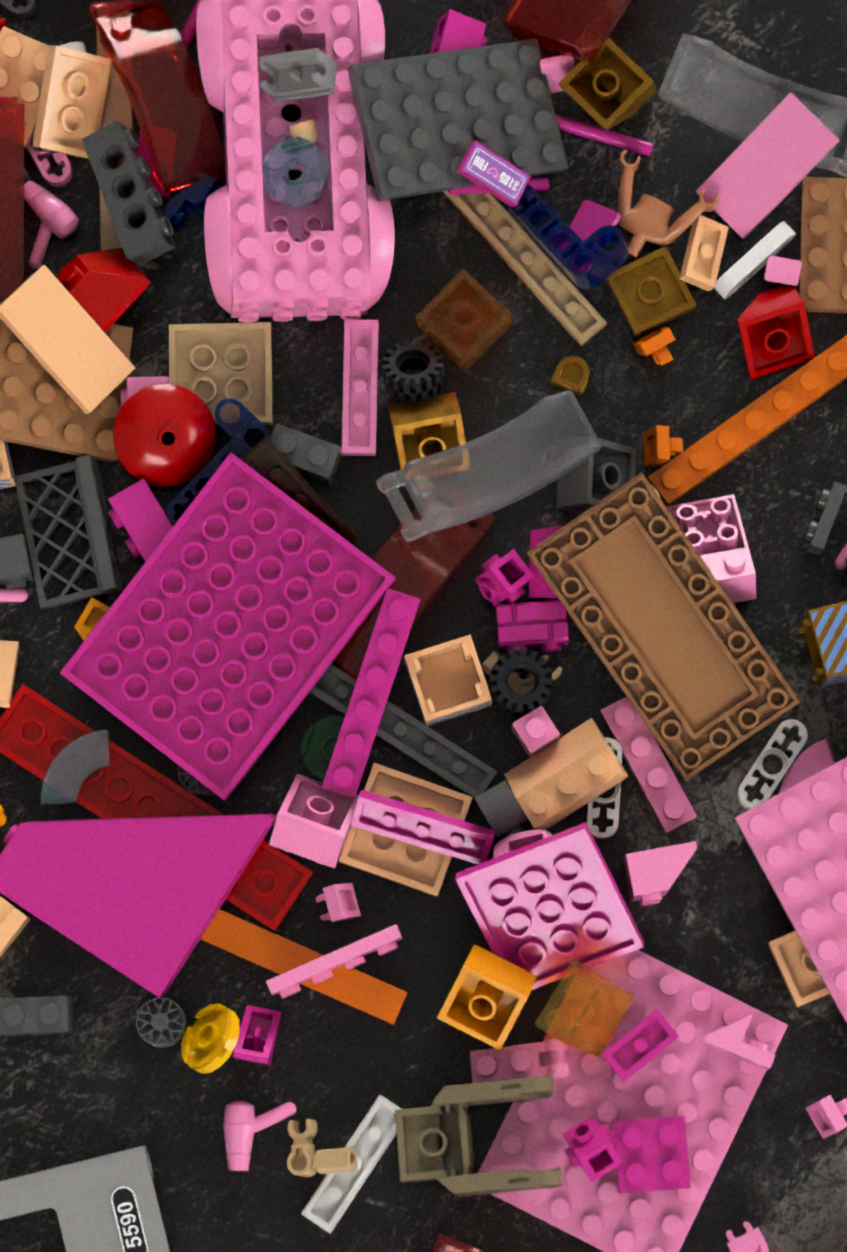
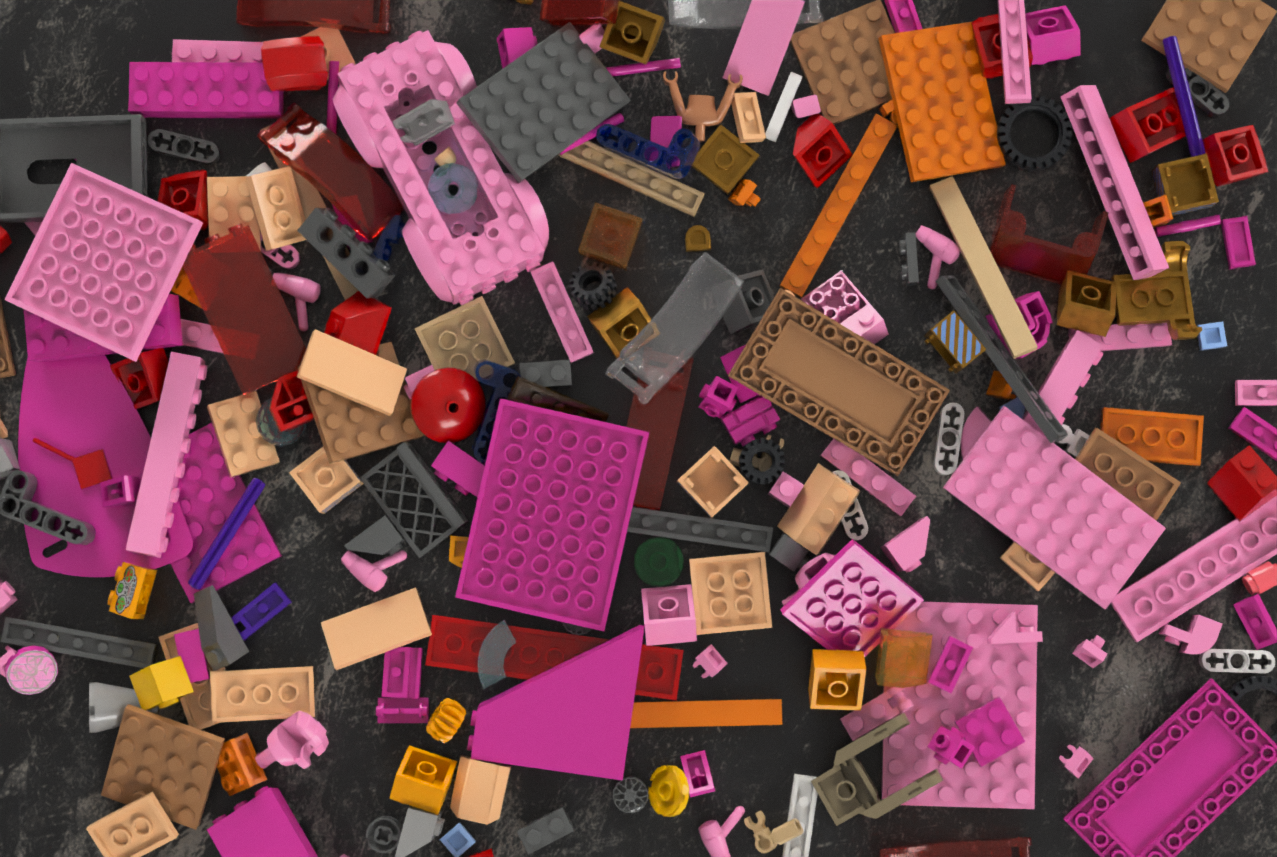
camera: 30 degrees left, 5 degrees up
(320, 968) = (719, 710): bright pink plate -> none
(371, 693) = (667, 514): dark pink plate -> none
(422, 828) = (743, 588): dark pink plate -> none
(493, 174) = (586, 129): tile -> none
(659, 447) = (778, 261): orange tile -> none

